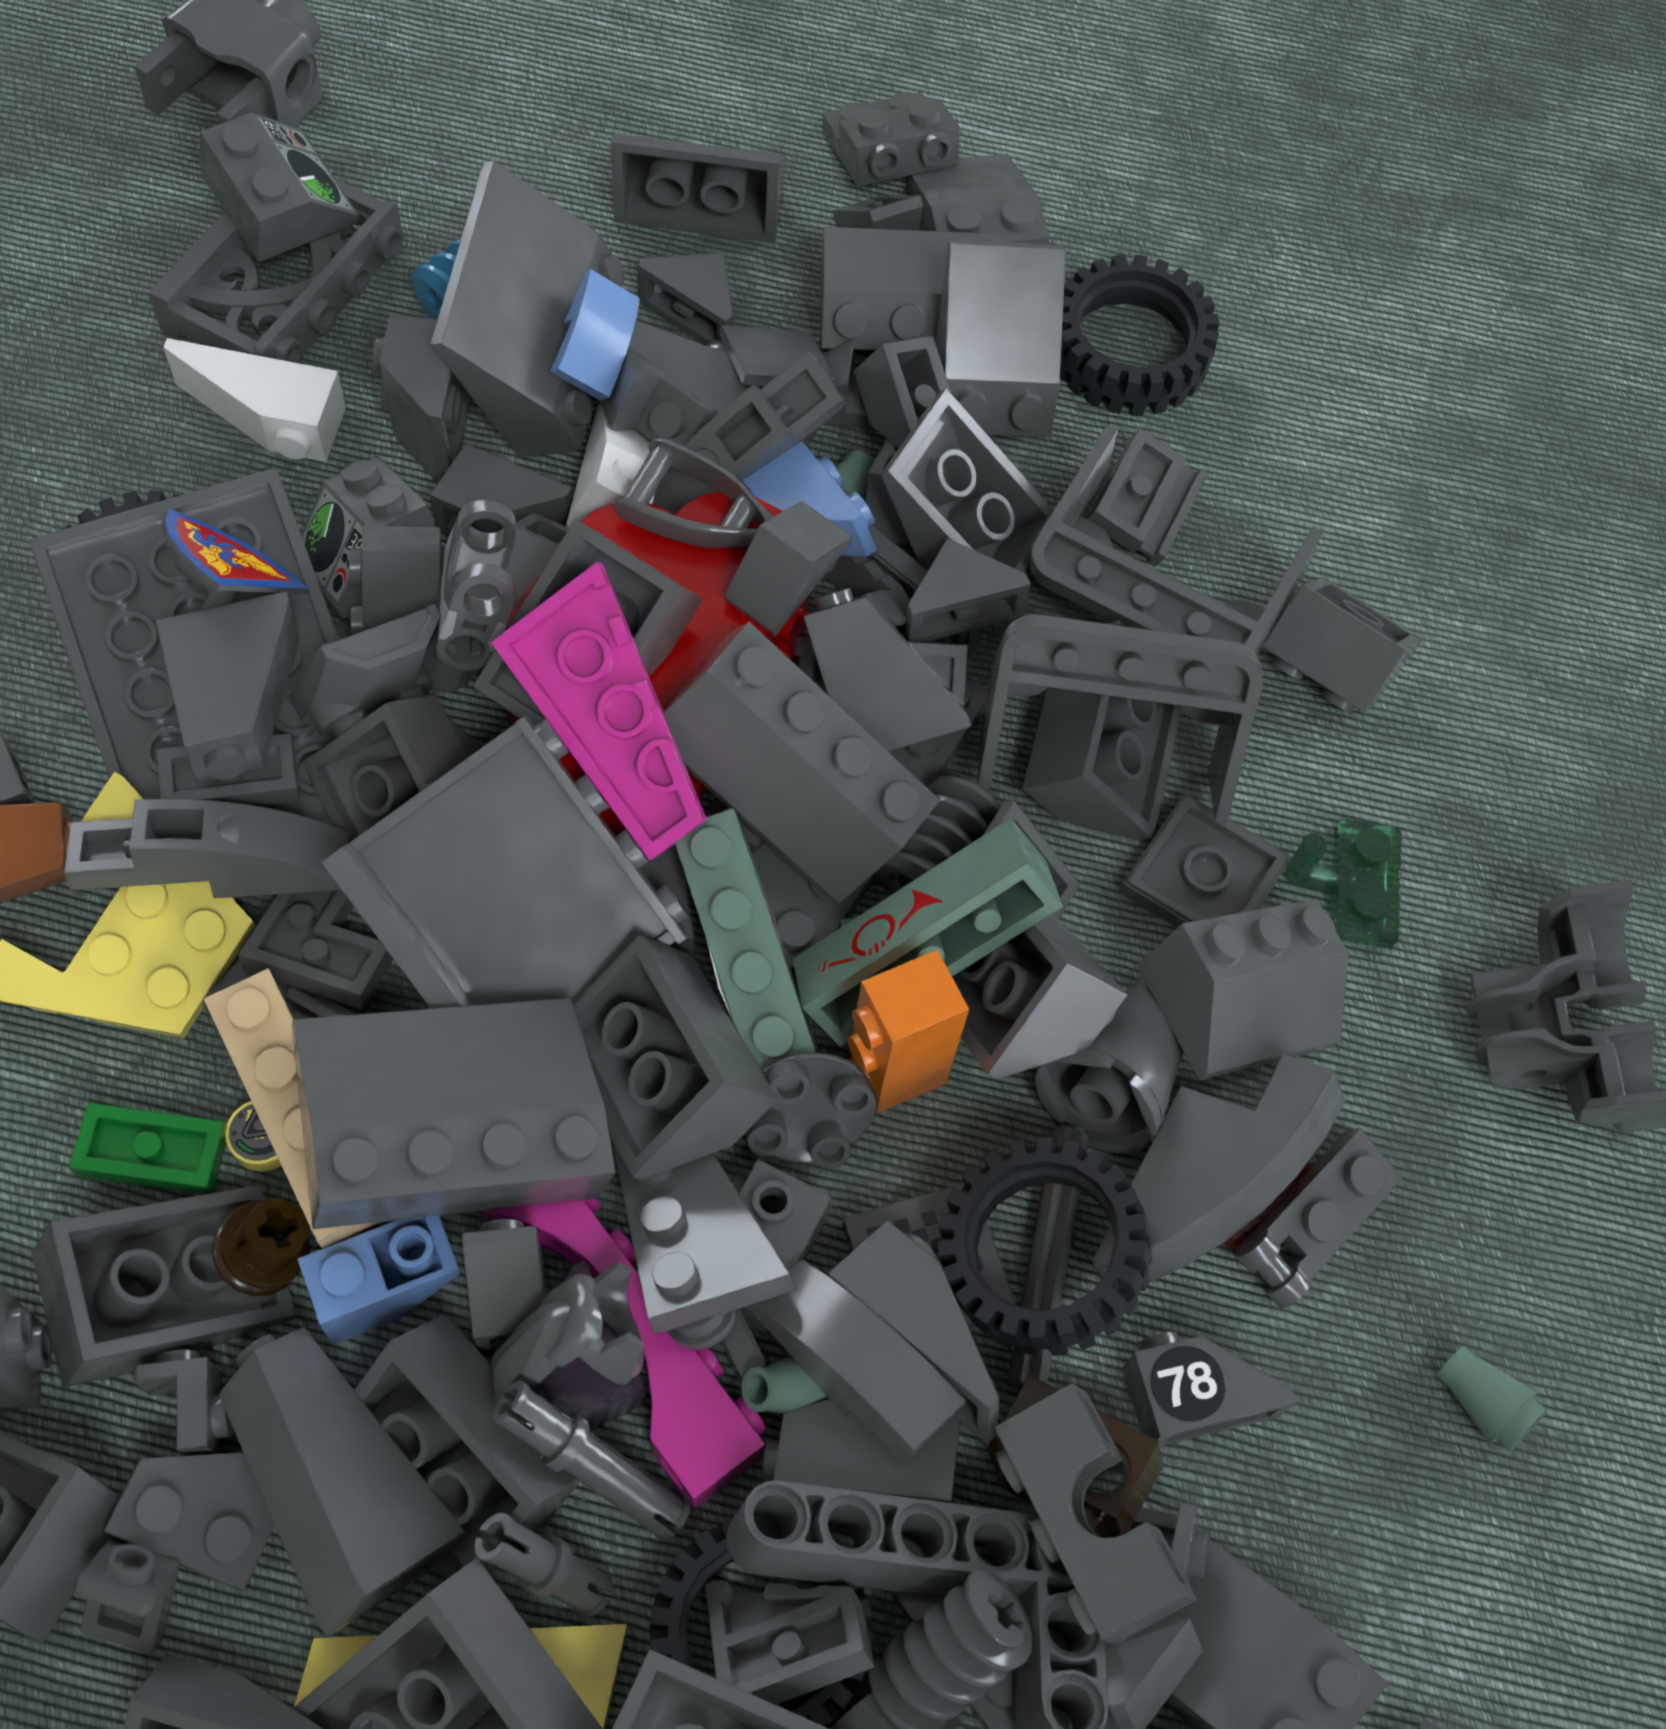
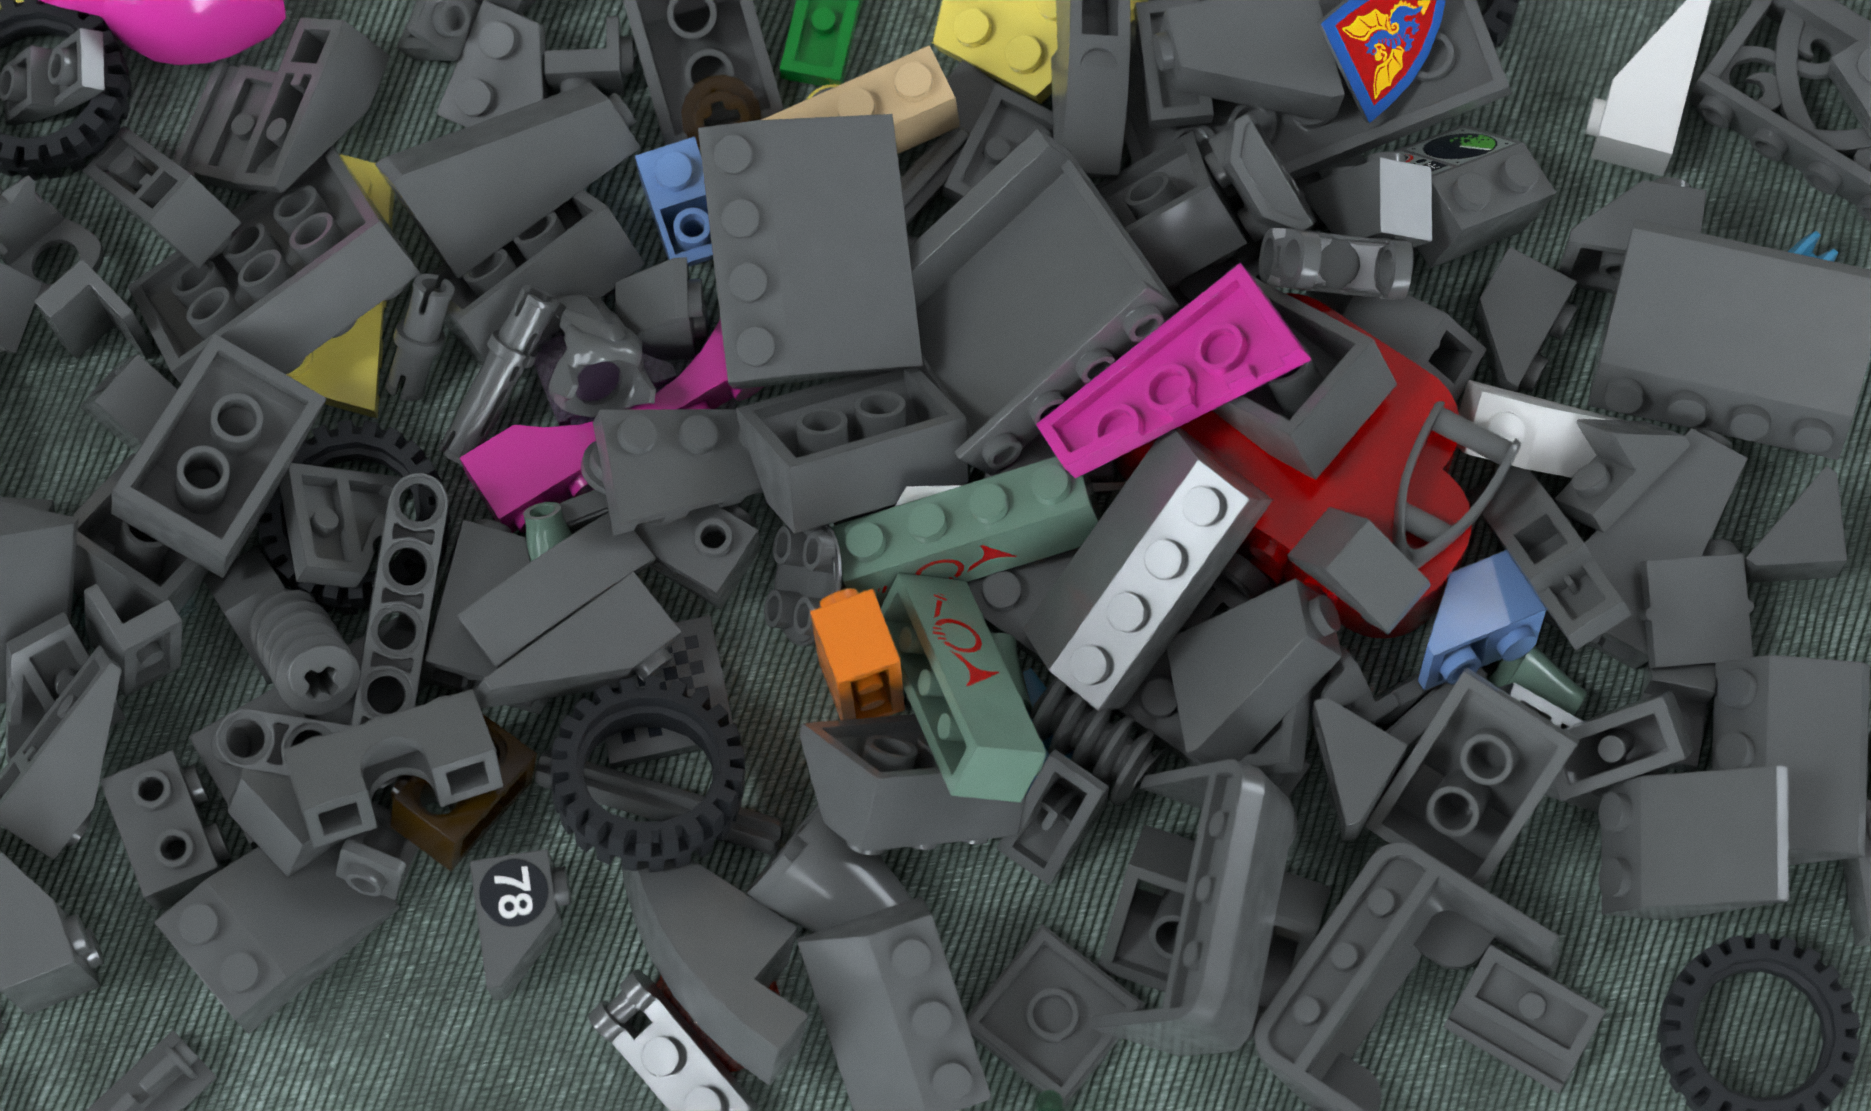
camera: 105 degrees right, 10 degrees up
(597, 335) = (1692, 404): medium blue slope -> none

